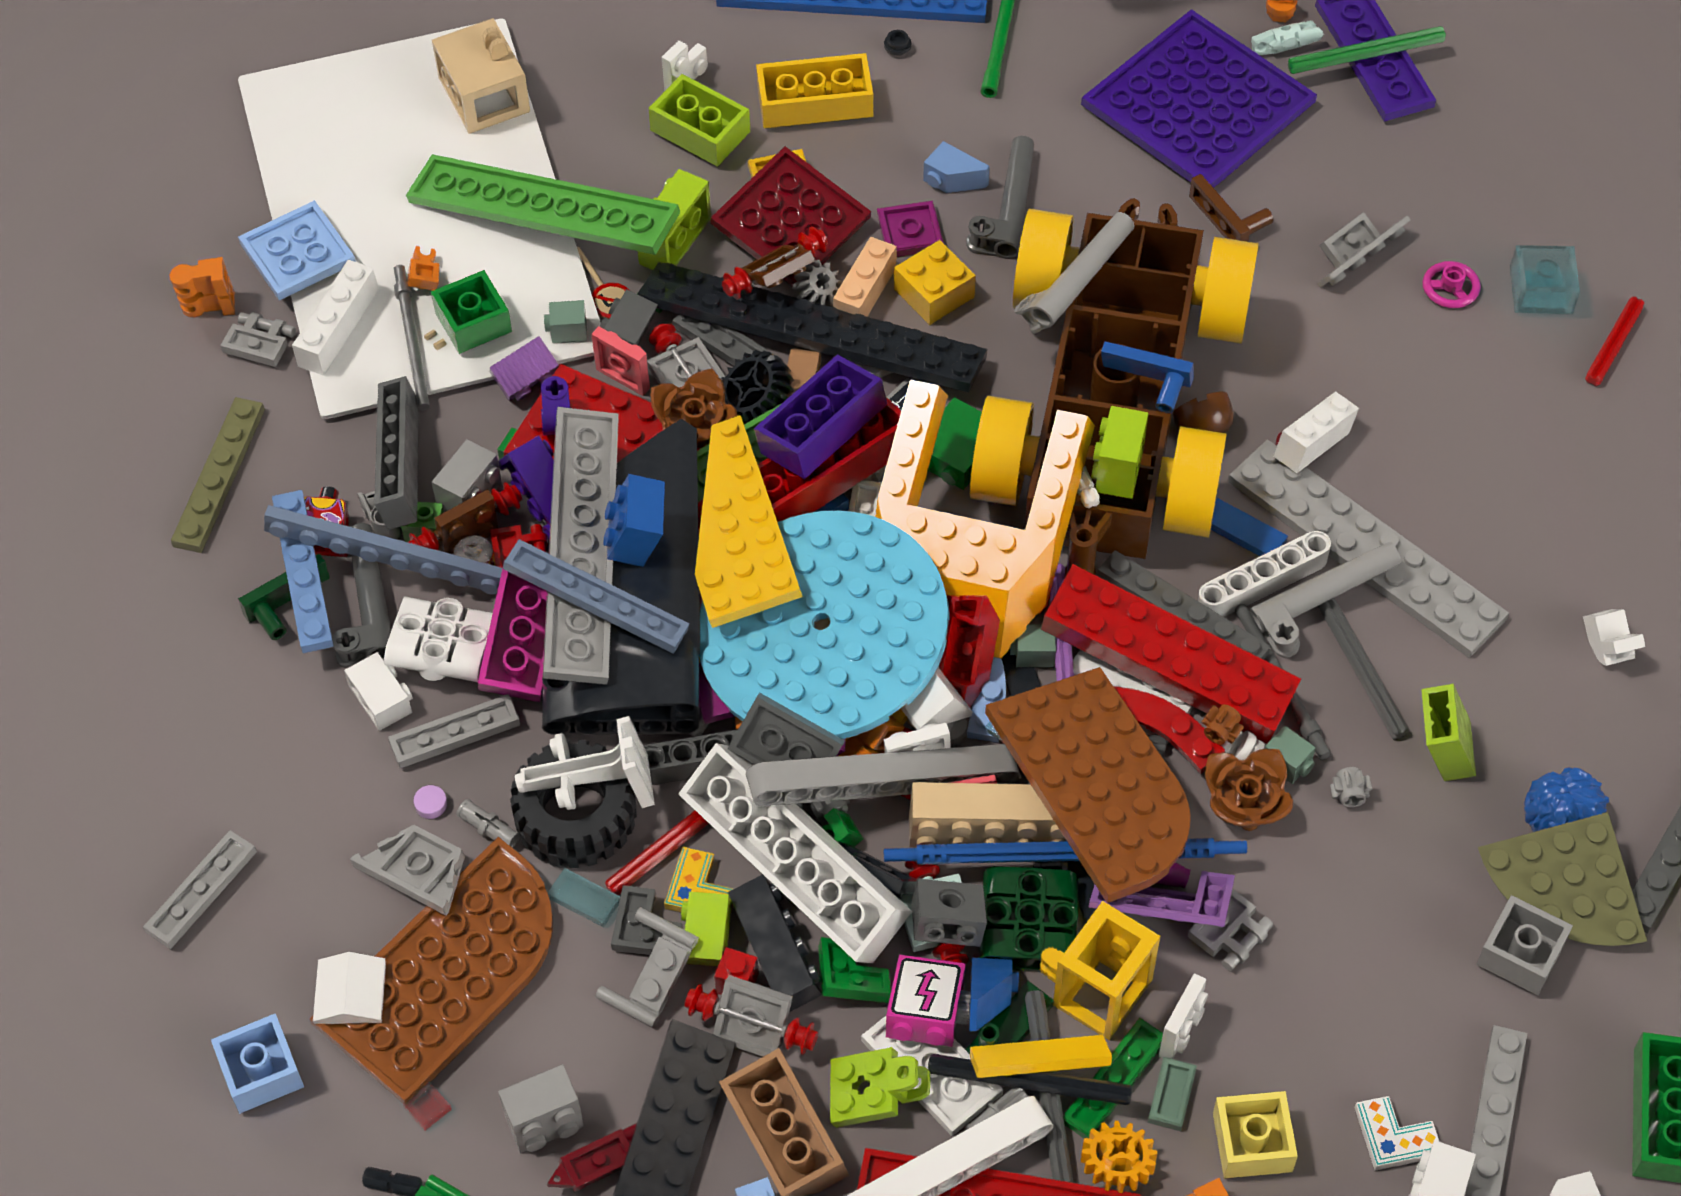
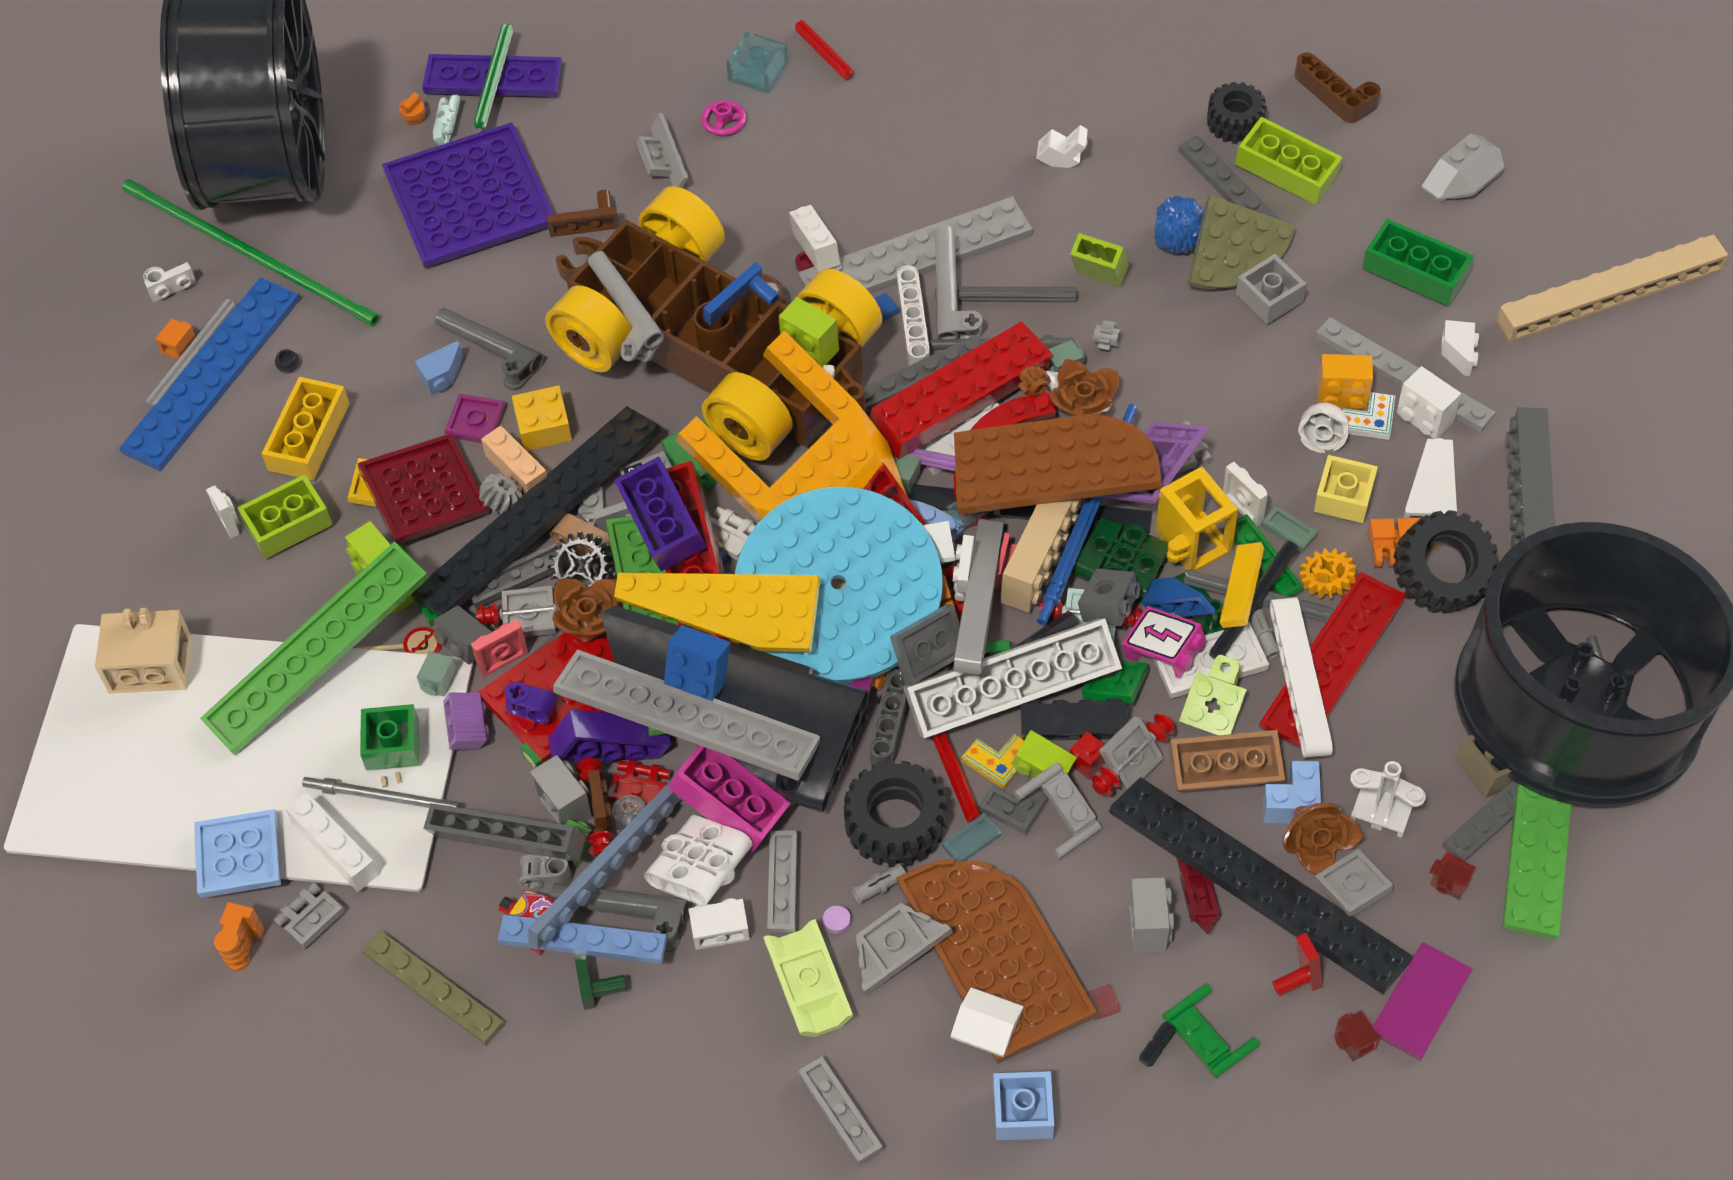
camera: 65 degrees left, 0 degrees up
(341, 798) = (809, 981): none -> yellowish green piece
(423, 271) = (319, 764): orange plate -> none
(595, 596) = (748, 715): sand blue plate -> none
(624, 761) = (894, 752): white piece -> none
(776, 265) = (475, 507): plate -> none
(1340, 1078) = (1323, 427): none -> white cylinder
(1419, 1078) = (1345, 380): none -> light orange brick

